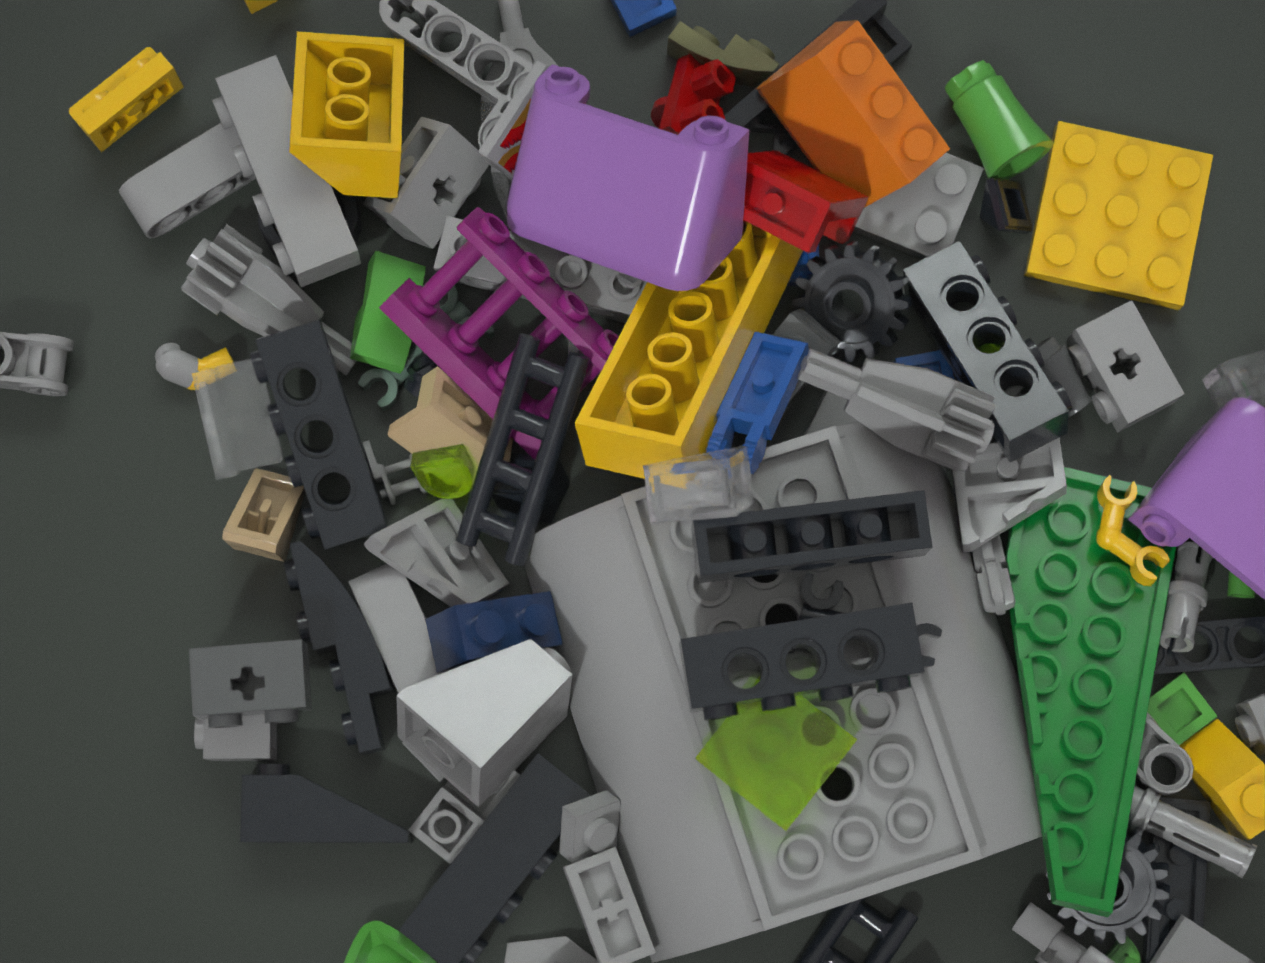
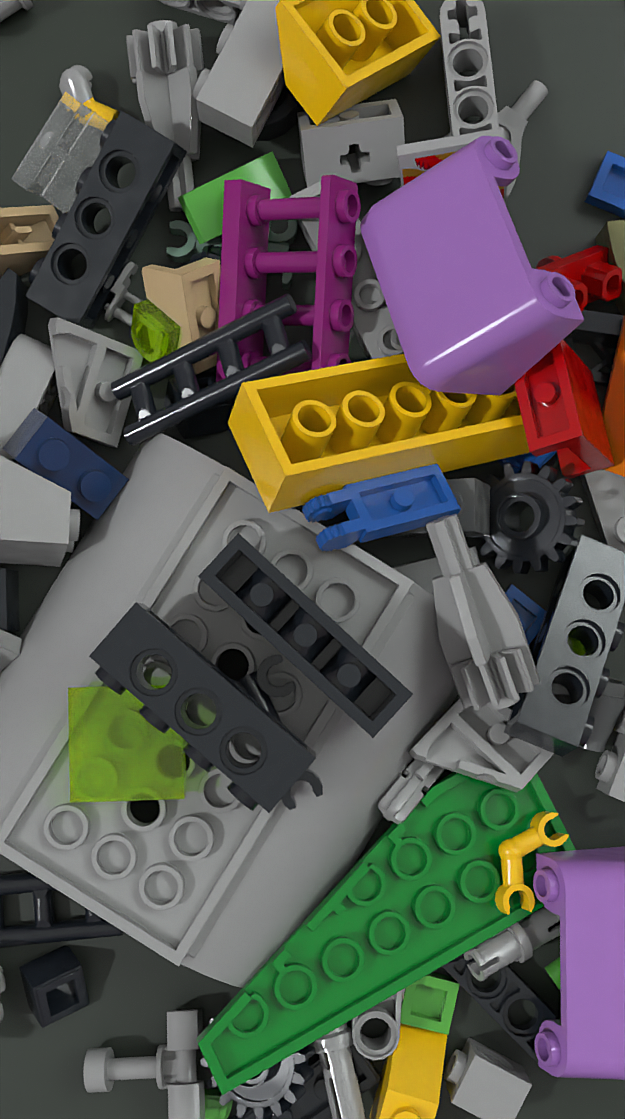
camera: 55 degrees right, 5 degrees up
(699, 486) = (269, 518): clear slope -> none

